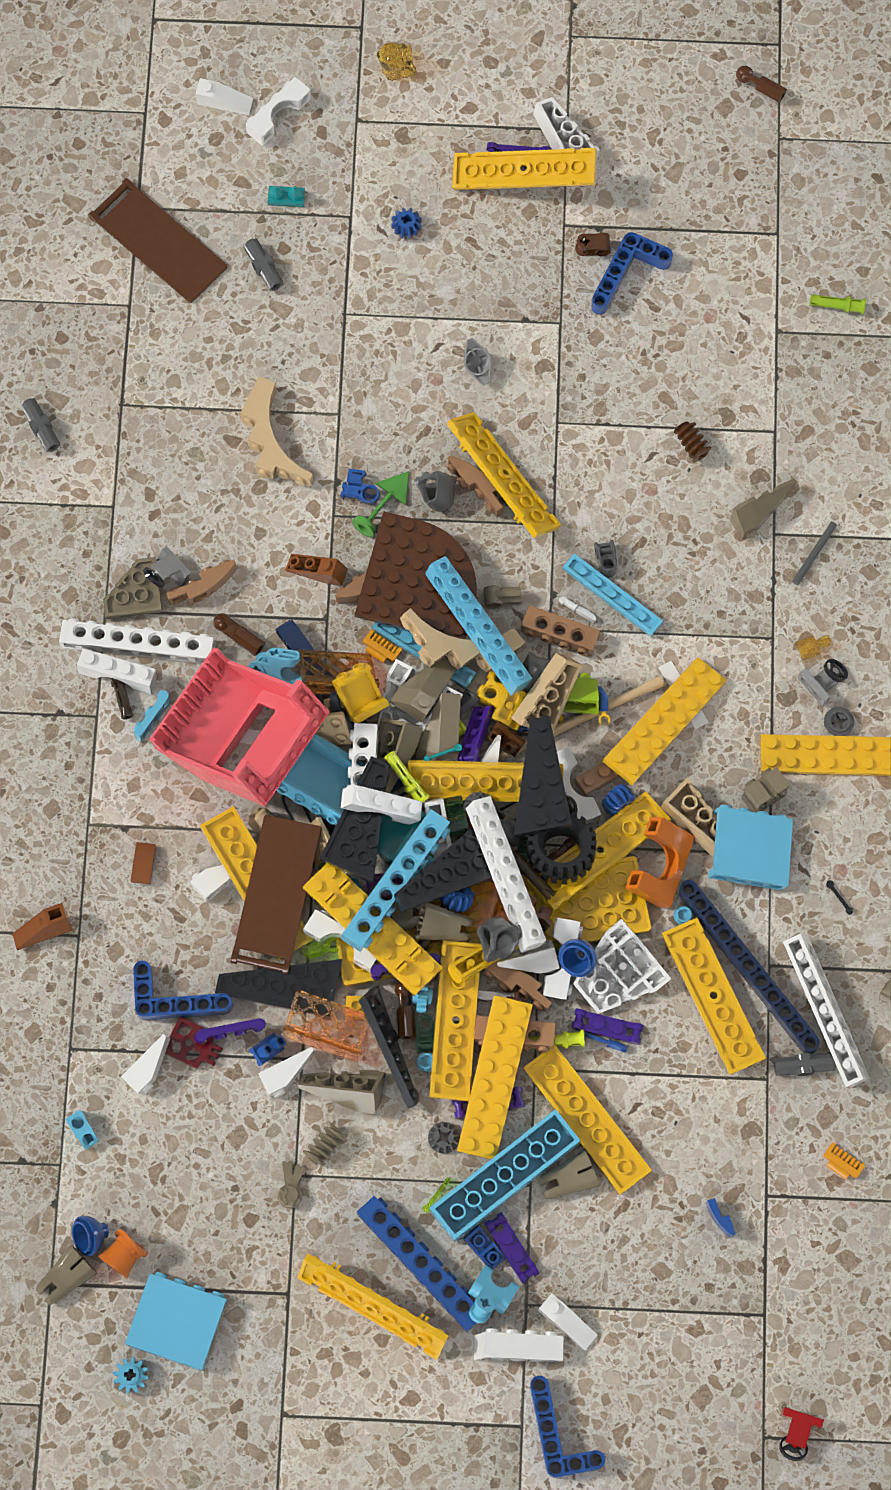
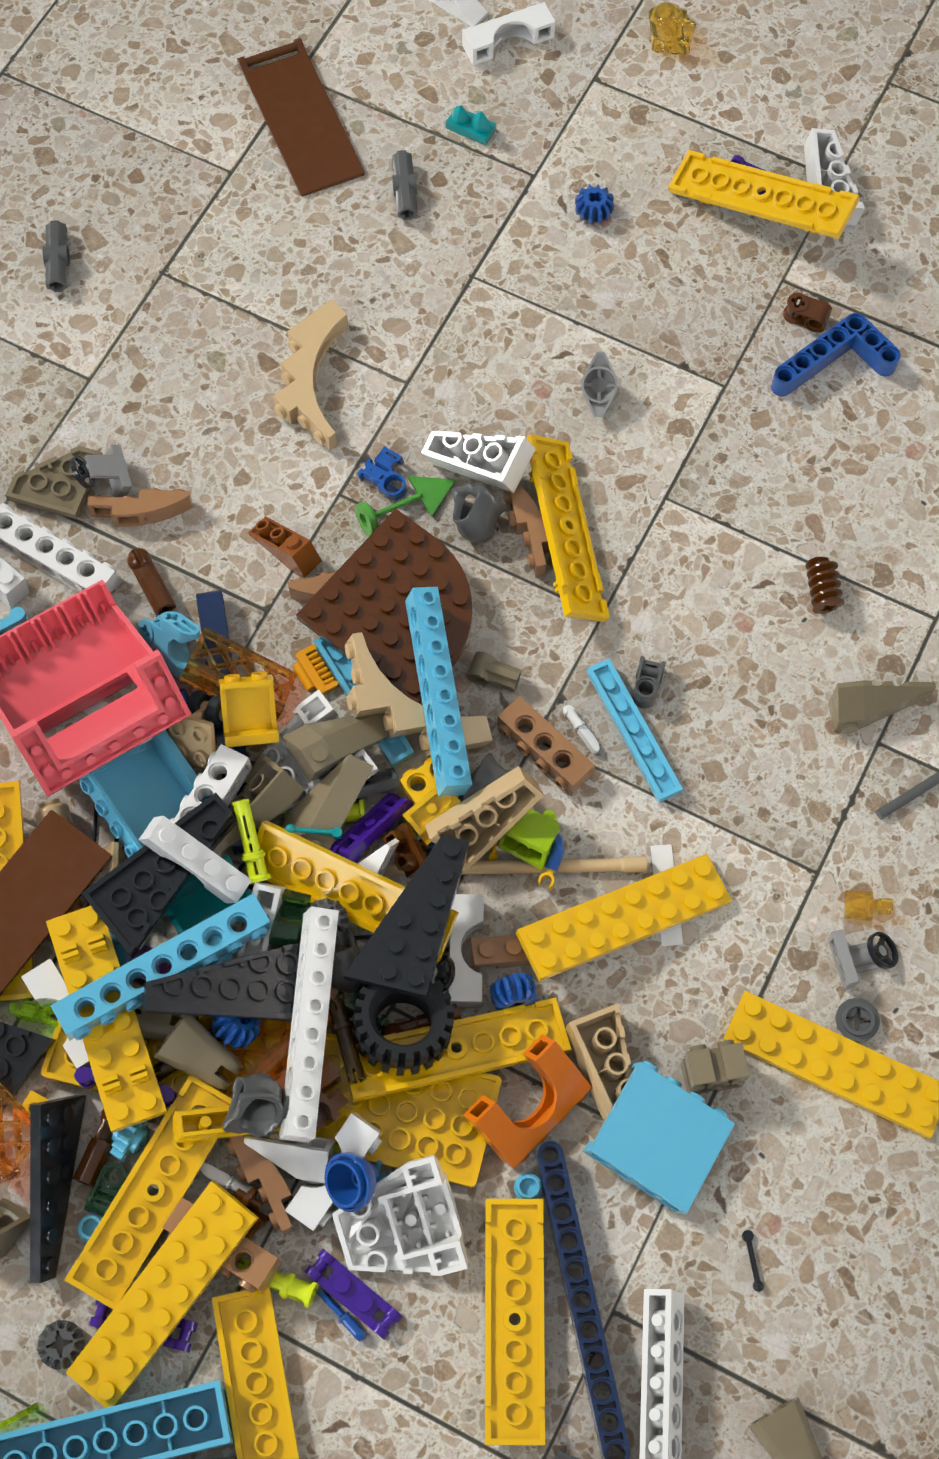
camera: 25 degrees right, 5 degrees down
(428, 449) = (488, 459): none -> white wedge

